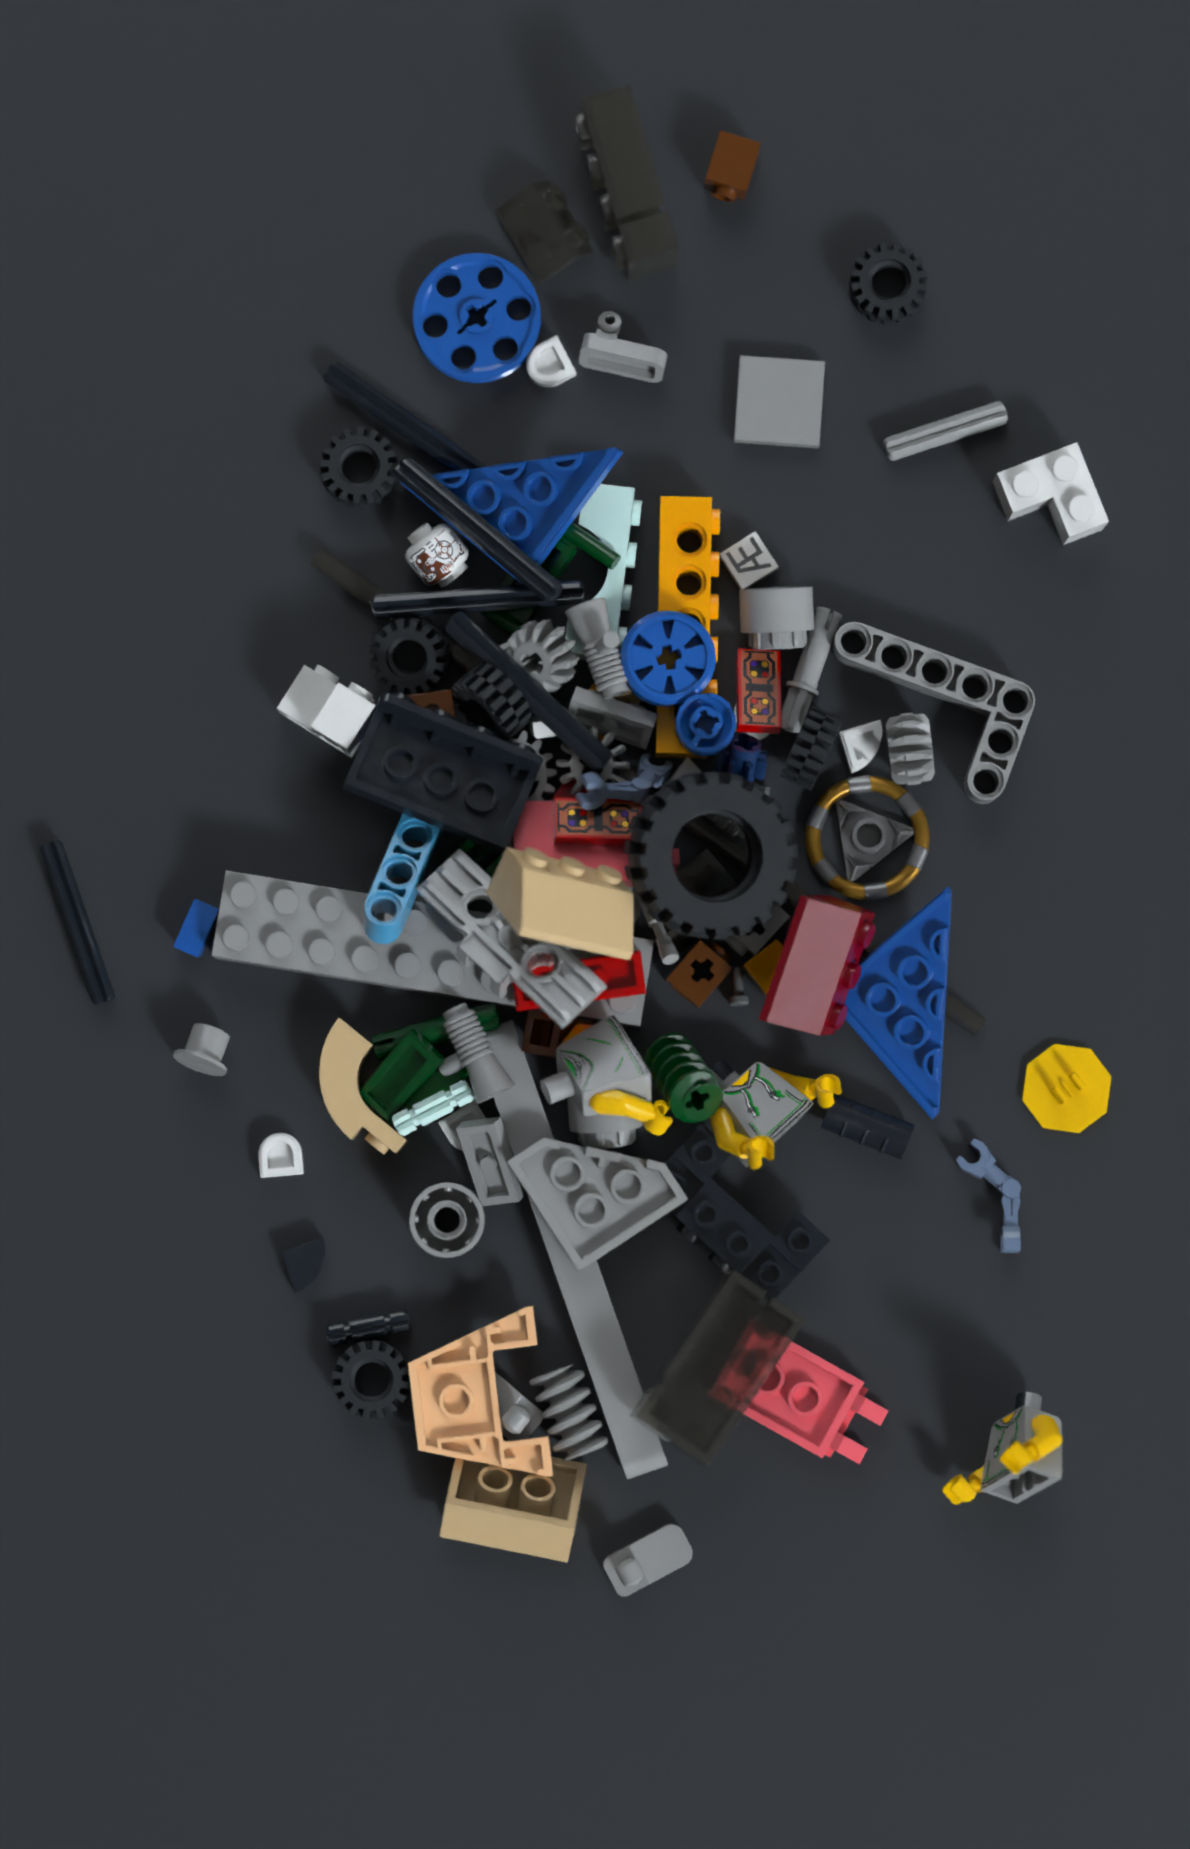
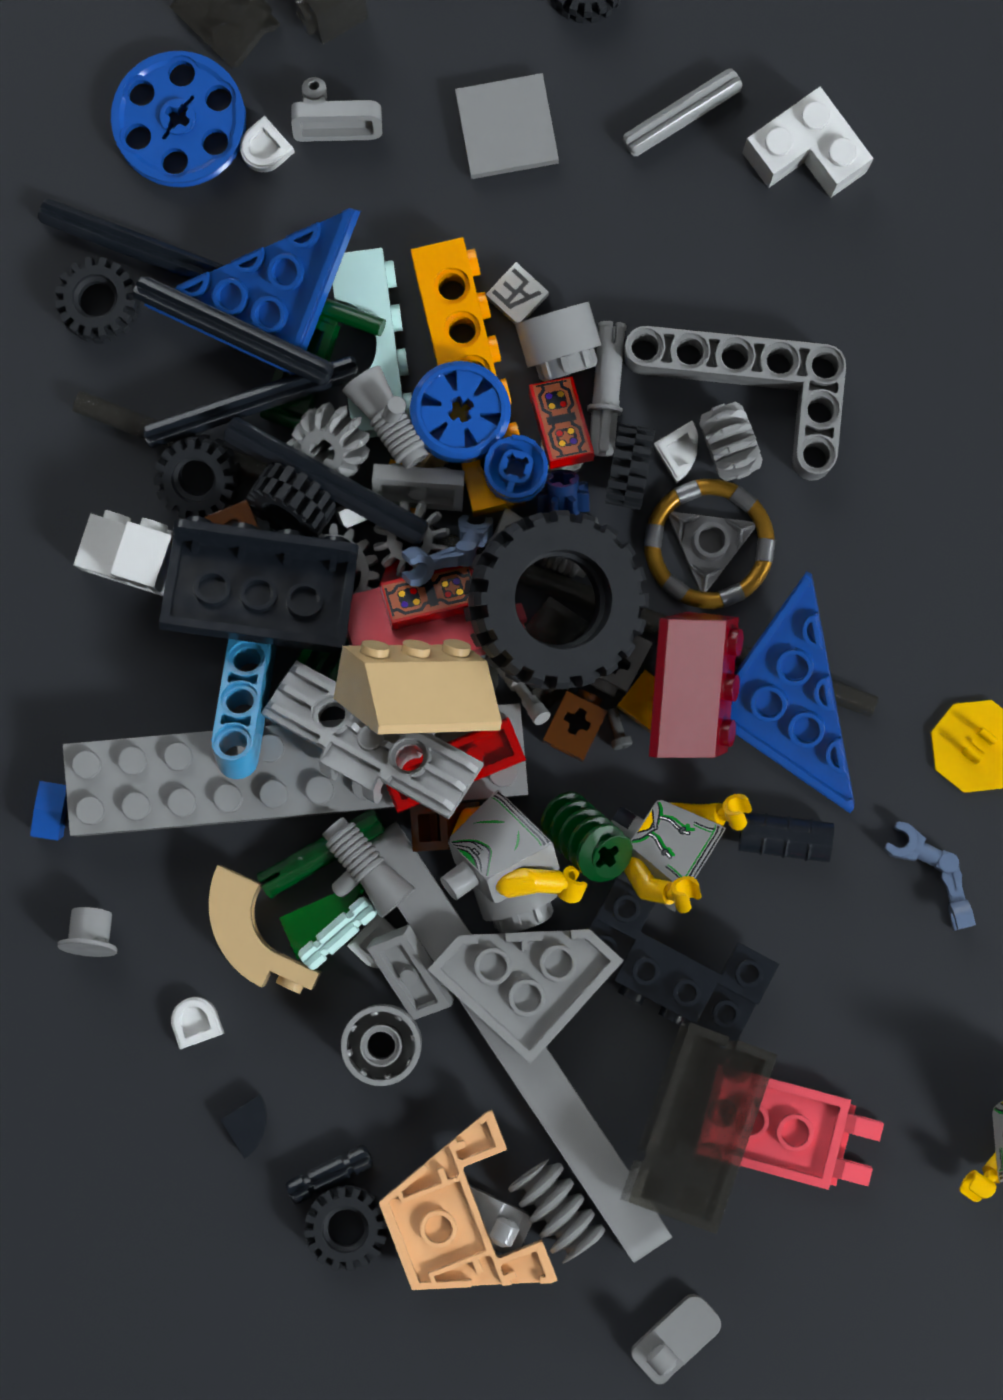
camera: 10 degrees left, 0 degrees up
(400, 1075) = (296, 908): dark green tile -> none
(436, 554) = (198, 367): white head -> none
(514, 1507) = (526, 1322): tan slope -> none

